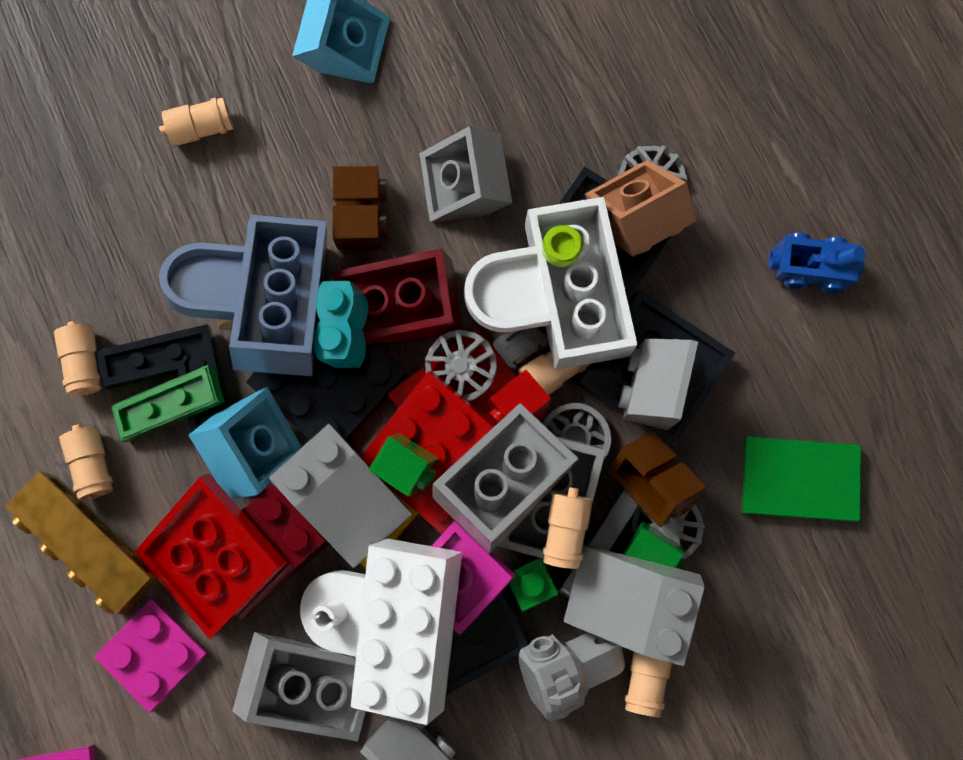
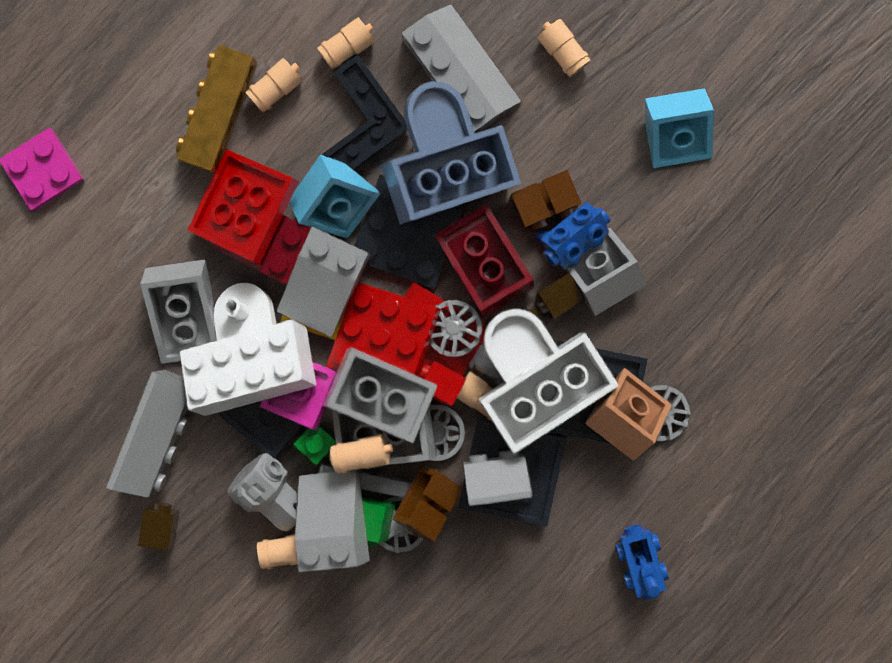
camera: 70 degrees right, 10 degrees up
(130, 251) = (455, 57): none -> light grey slope
(151, 655) = (160, 193): dark pink plate -> none
(167, 403) = (339, 125): green tile -> none
(339, 332) = (438, 232): teal brick -> none
(404, 465) = (361, 319): green brick -> none
(411, 190) = (574, 236): none -> blue brick
(473, 233) = (559, 296): none -> dark brown brick
(562, 246) = (566, 370): lime tile -> none
(801, 479) = (473, 608): green tile -> none

